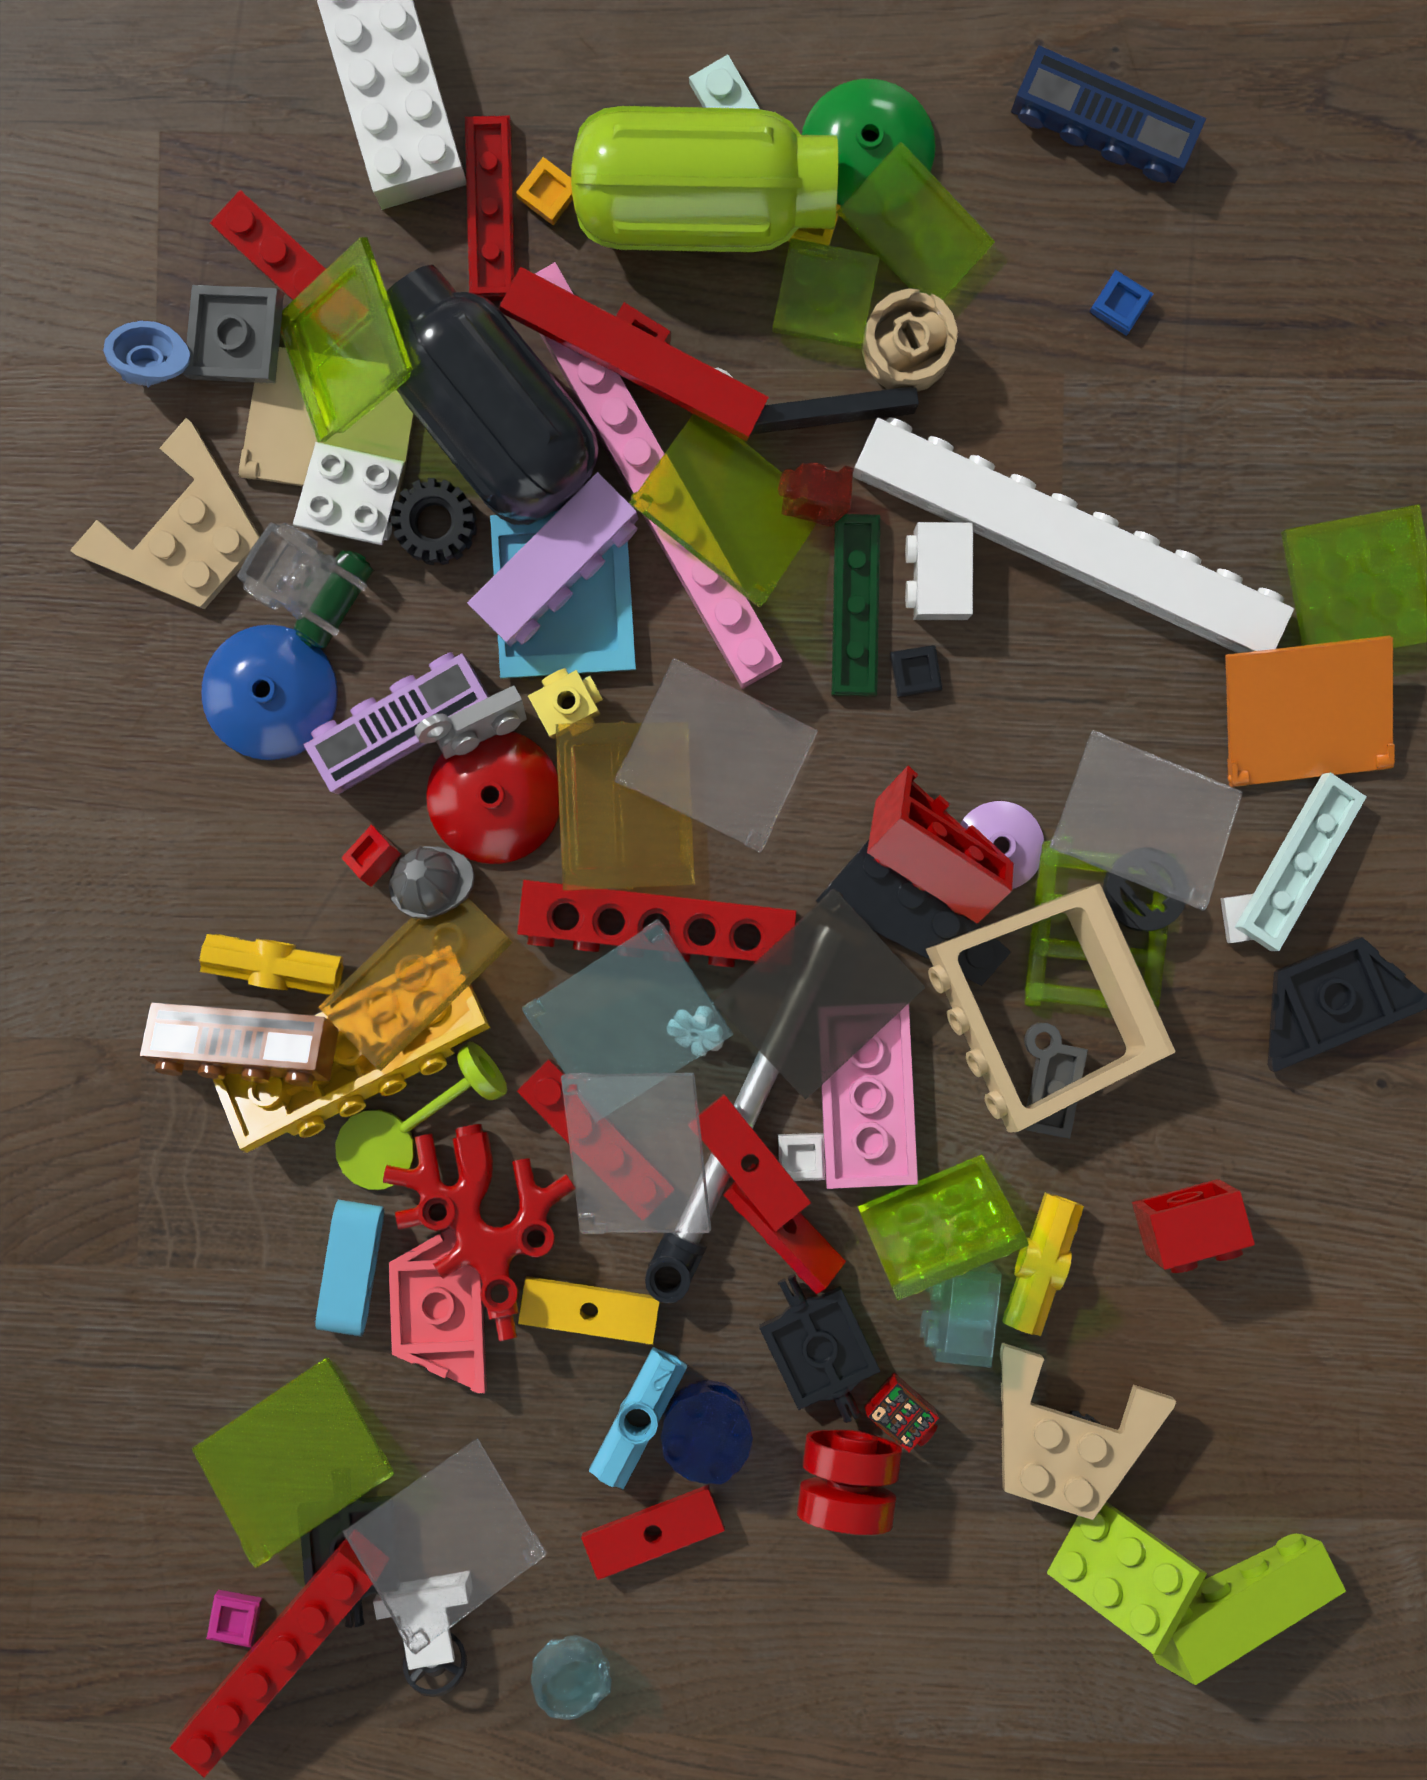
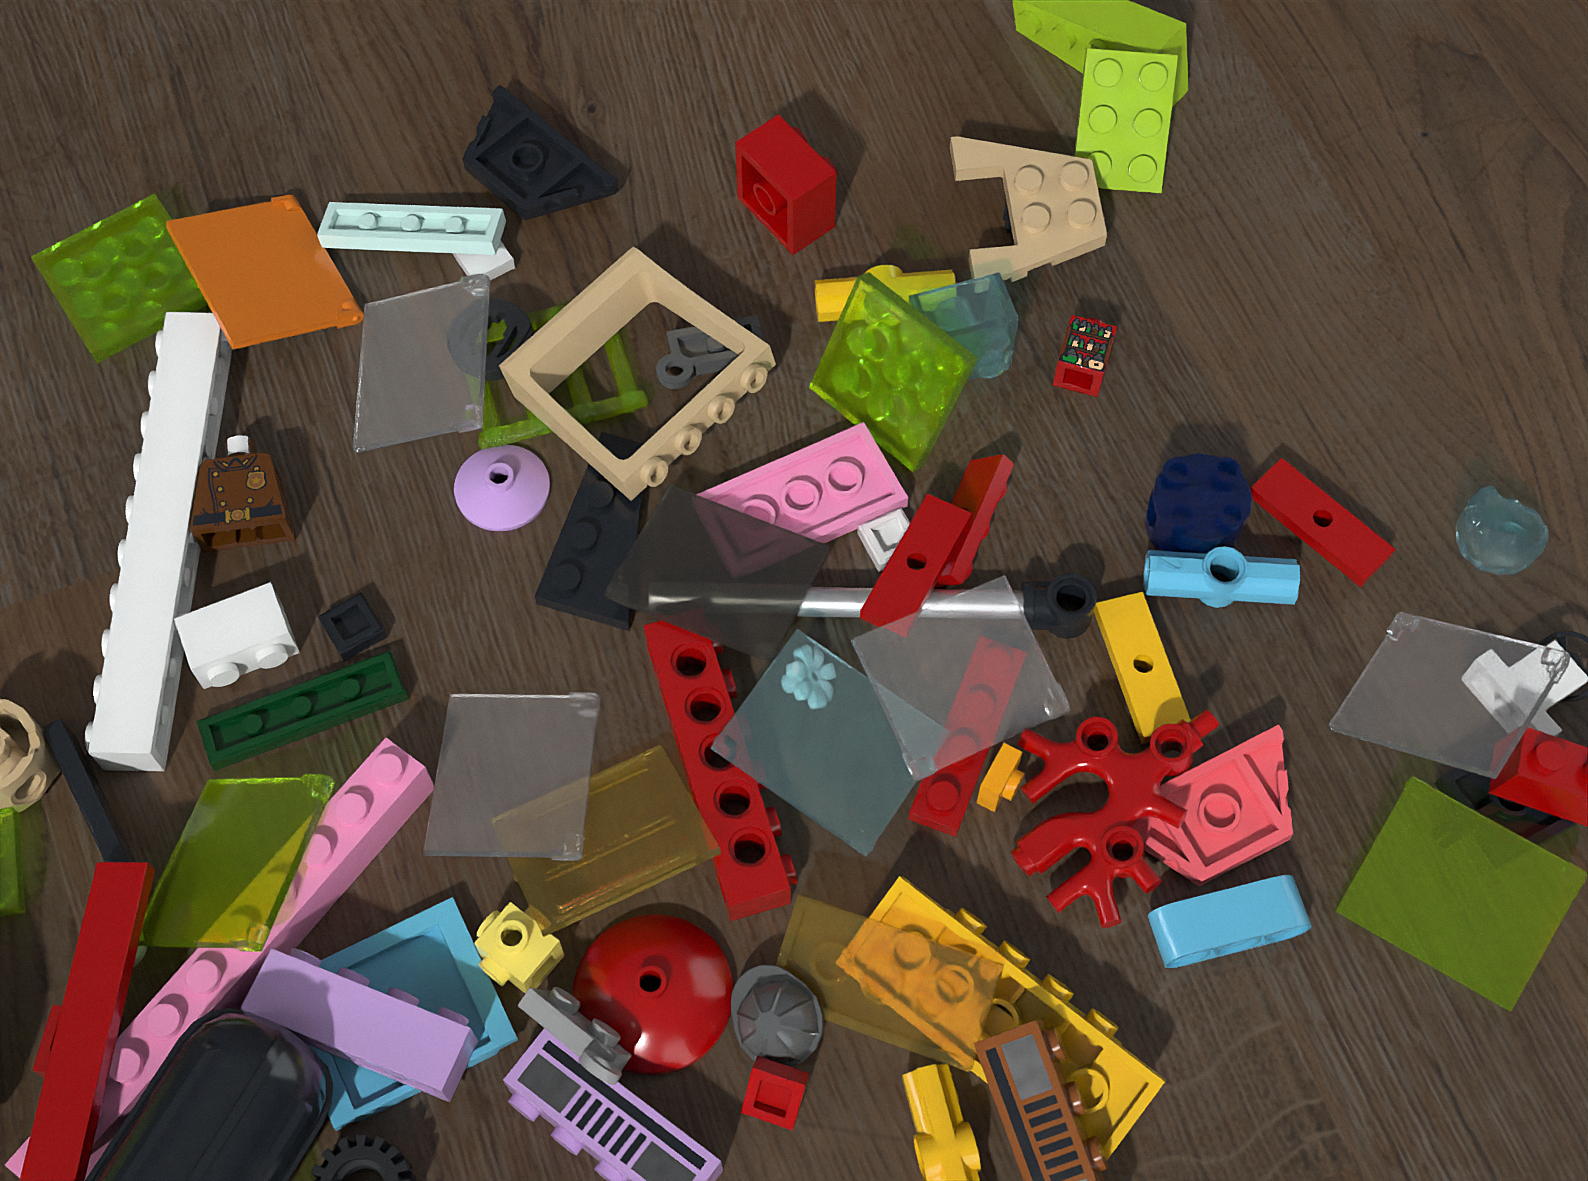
camera: 110 degrees left, 25 degrees down
(382, 1139) = (1079, 952): lime piece -> none
(542, 1147) = (1001, 779): none -> light orange plate
(816, 493) = (191, 782): clear red brick -> none
(819, 1348) = (1064, 448): black plate -> none
(849, 1482) = (1172, 363): red wheel -> none
(936, 851) = (527, 527): red wedge -> none
(1077, 616) = (240, 500): none -> reddish brown torso

